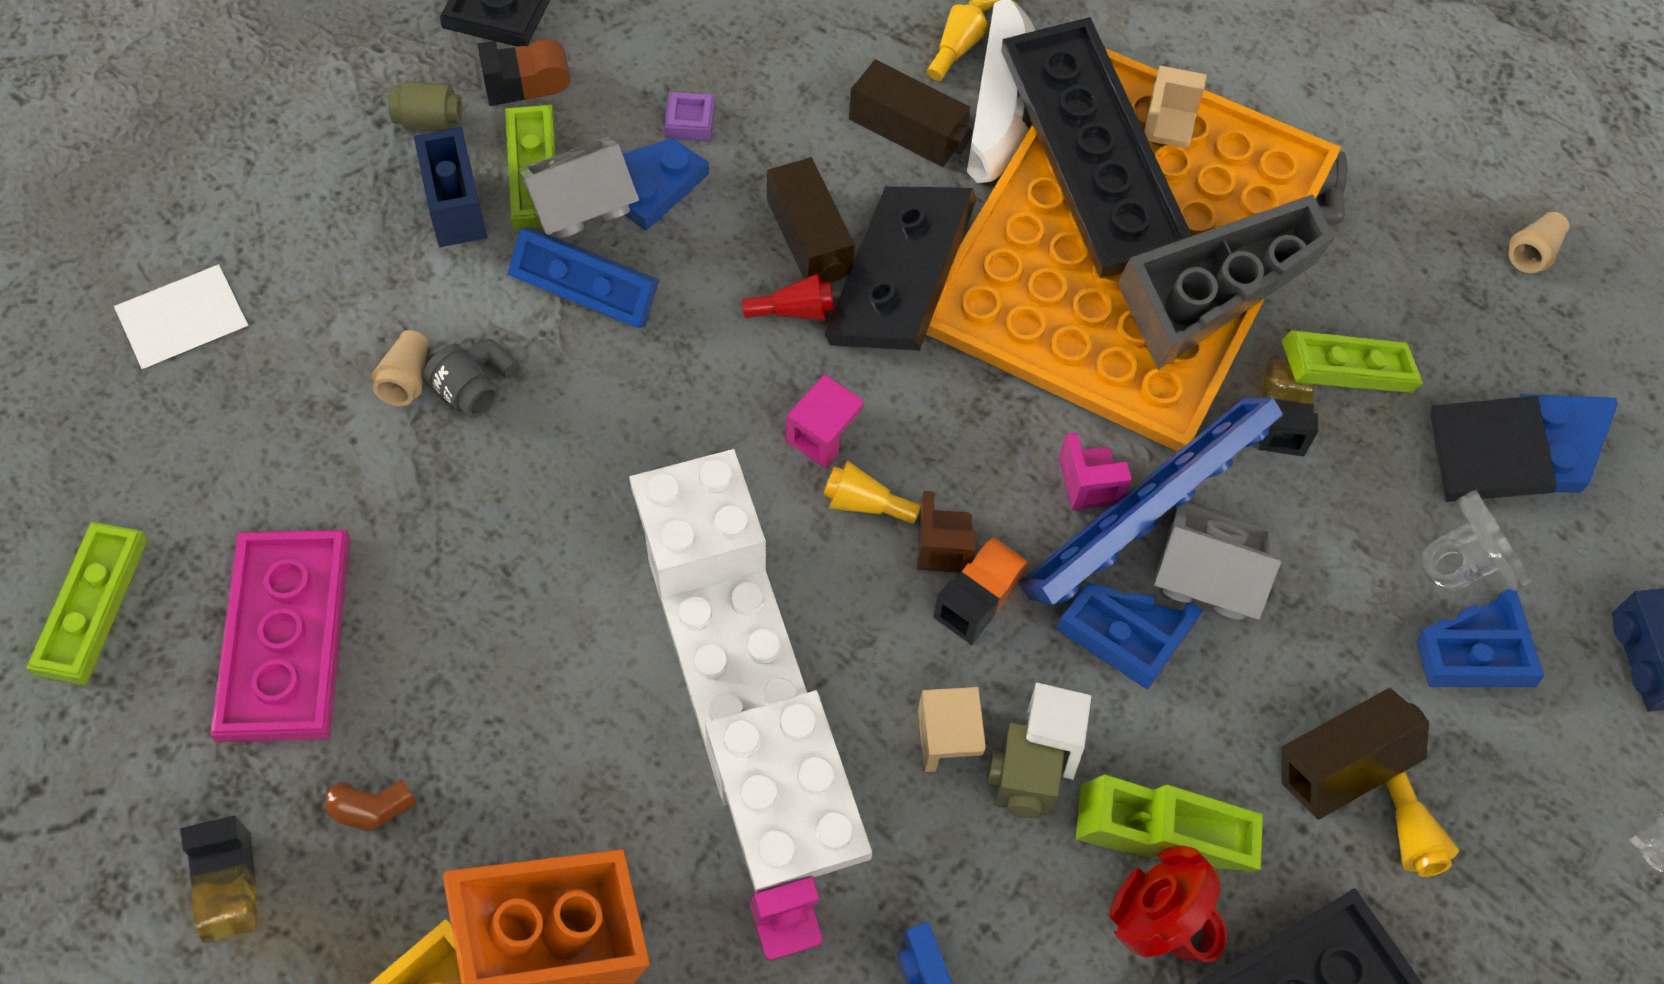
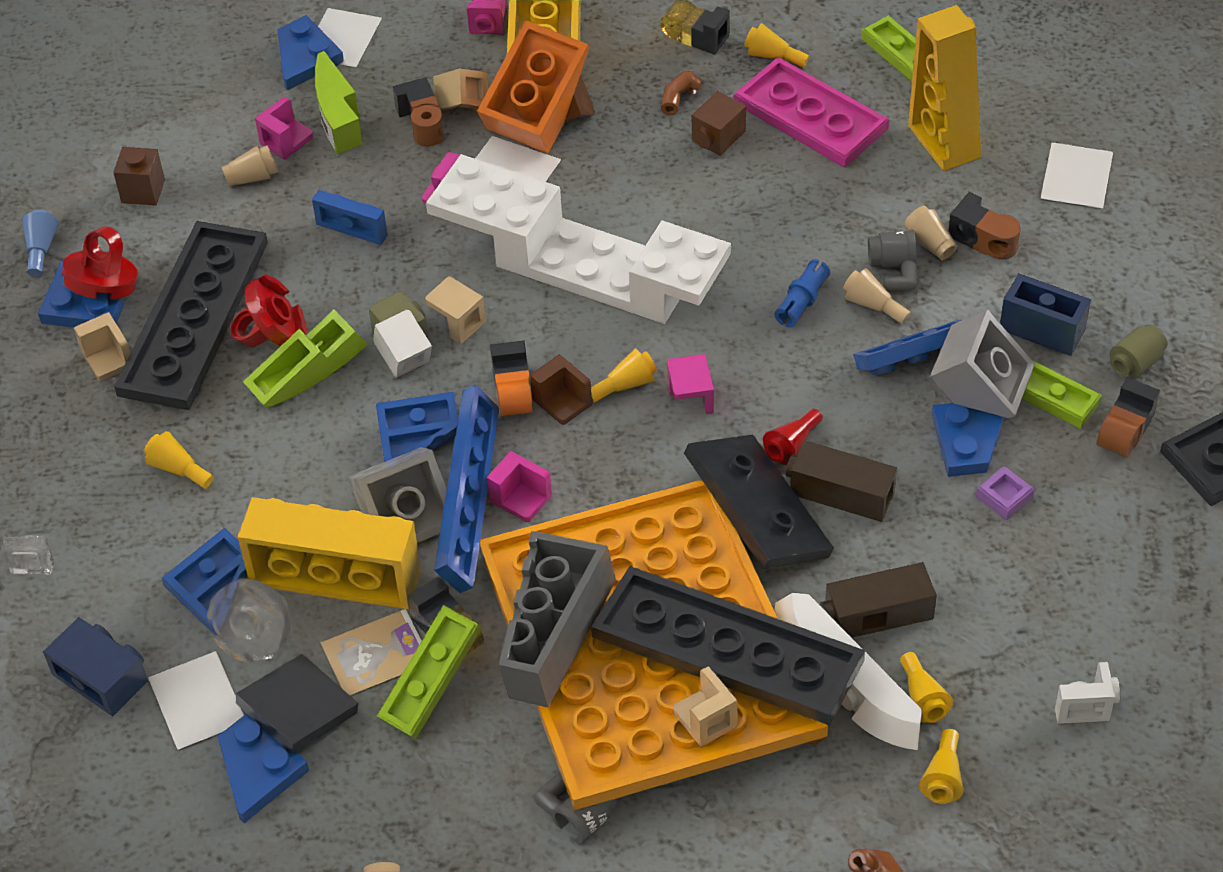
camera: 140 degrees right, 10 degrees down
(182, 433) = (946, 88): none -> yellow wedge
(196, 765) = (767, 44): none -> yellow cone
(357, 334) = (984, 229): none -> leg
(401, 698) = (718, 123): none -> reddish brown brick
(542, 369) = (867, 291): none -> tan cone
(596, 426) = (802, 293): none -> blue pin
(674, 898) = (518, 158): none -> white sticker
(1354, 752) = (237, 457): dark brown brick -> none
(1358, 536) = (330, 552): none -> yellow brick
(1366, 453) = (372, 652): none -> sticker
(1575, 552) = (196, 700): none -> white sticker

